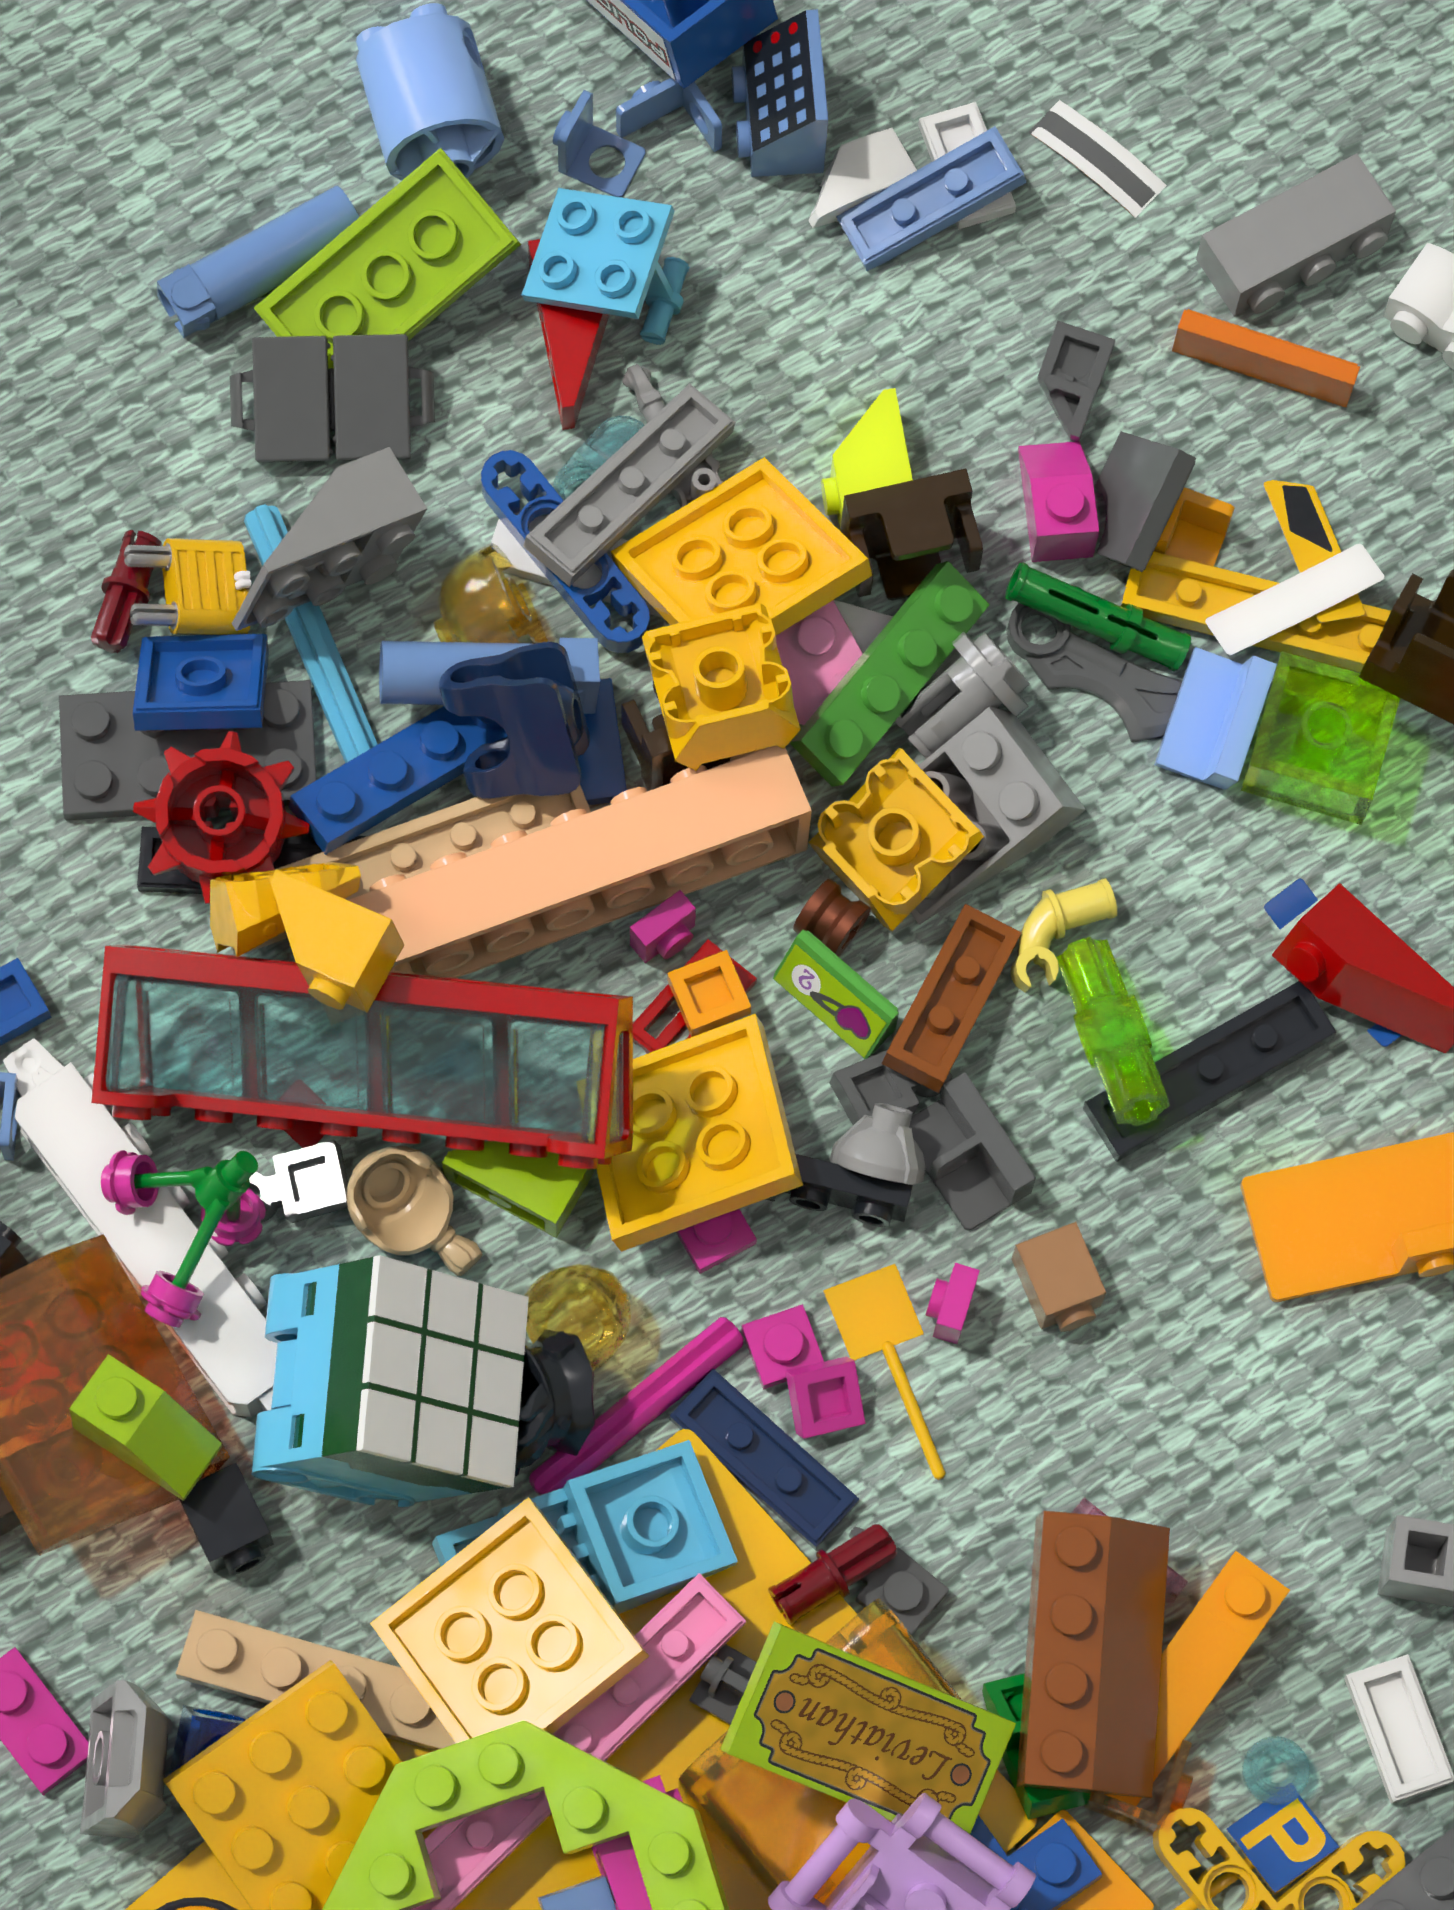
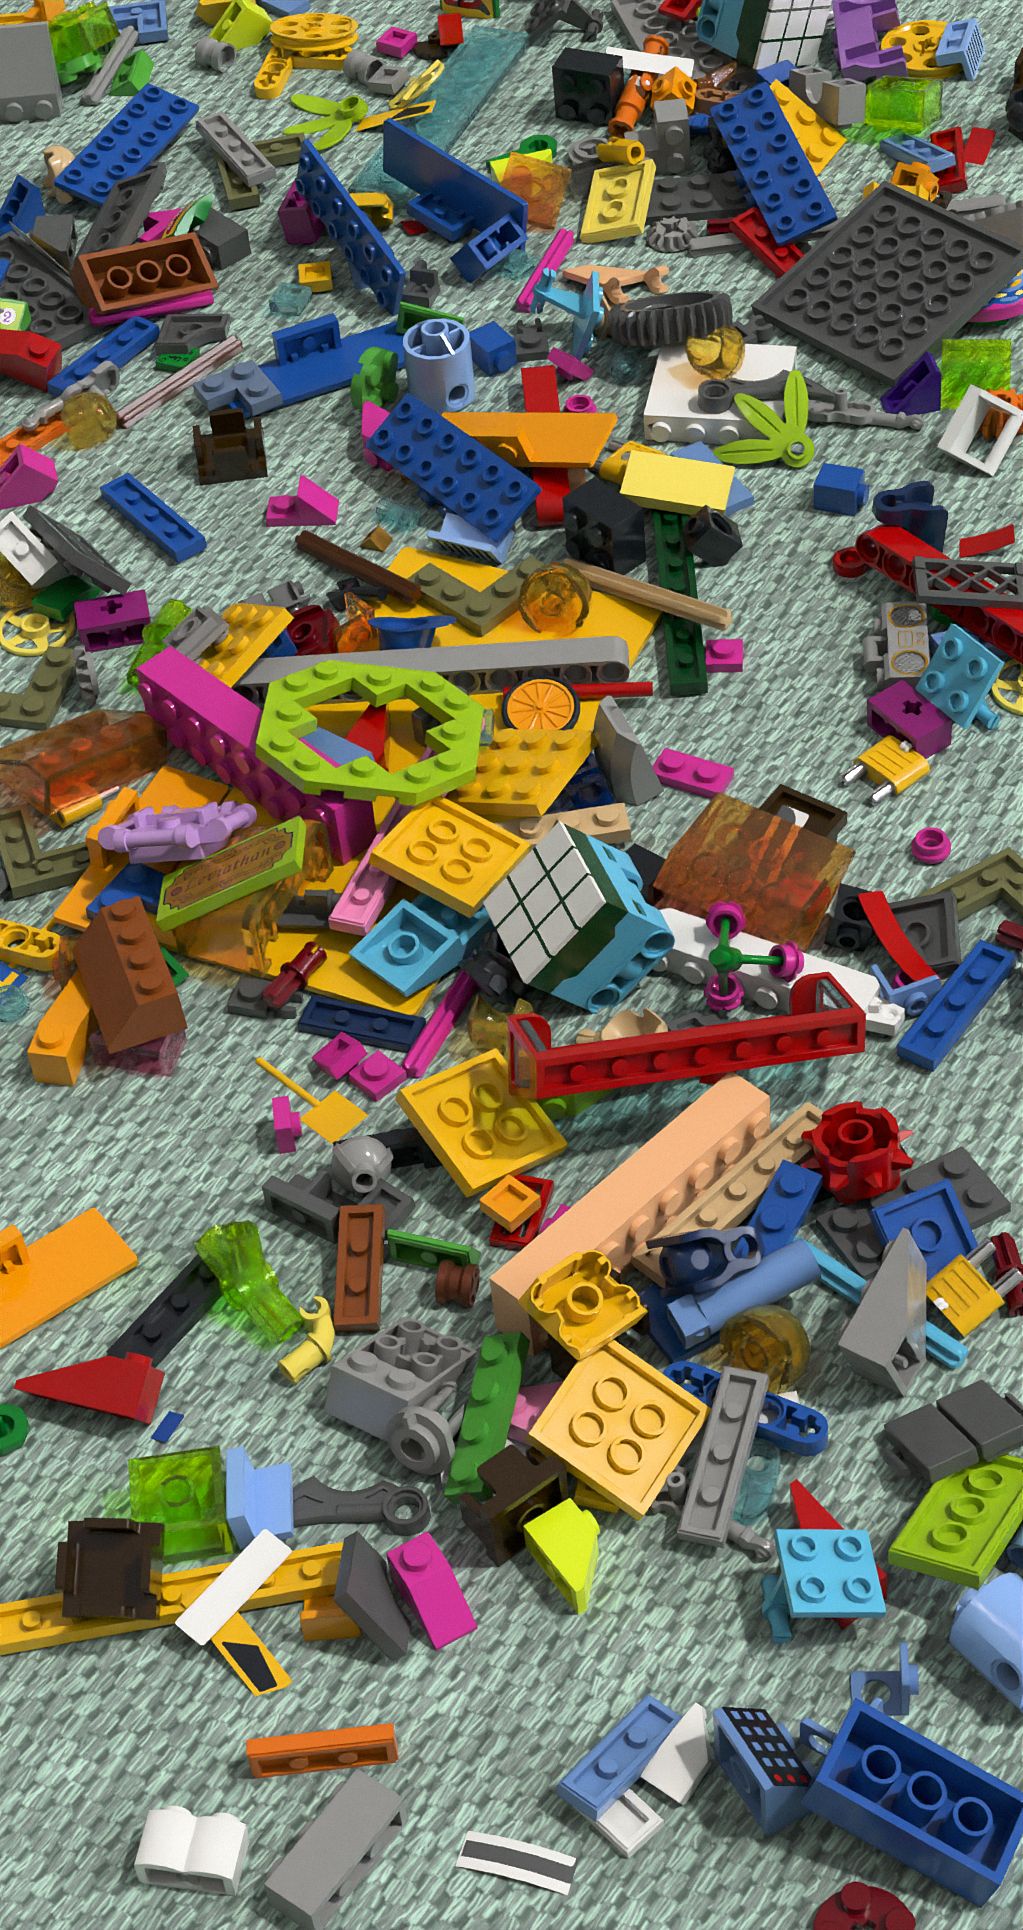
camera: 165 degrees right, 25 degrees down
(143, 1427) = (700, 843): lime slope -> none
(246, 908) = (786, 1098): yellow slope -> none
(336, 943) = (727, 1029): yellow slope -> none
(894, 838) = (437, 1321): yellow slope -> none
(1059, 1278) = (228, 1161): medium nougat brick -> none
(1074, 374) = (460, 1688): dark grey slope -> none
(1120, 626) = (367, 1518): green pin -> none

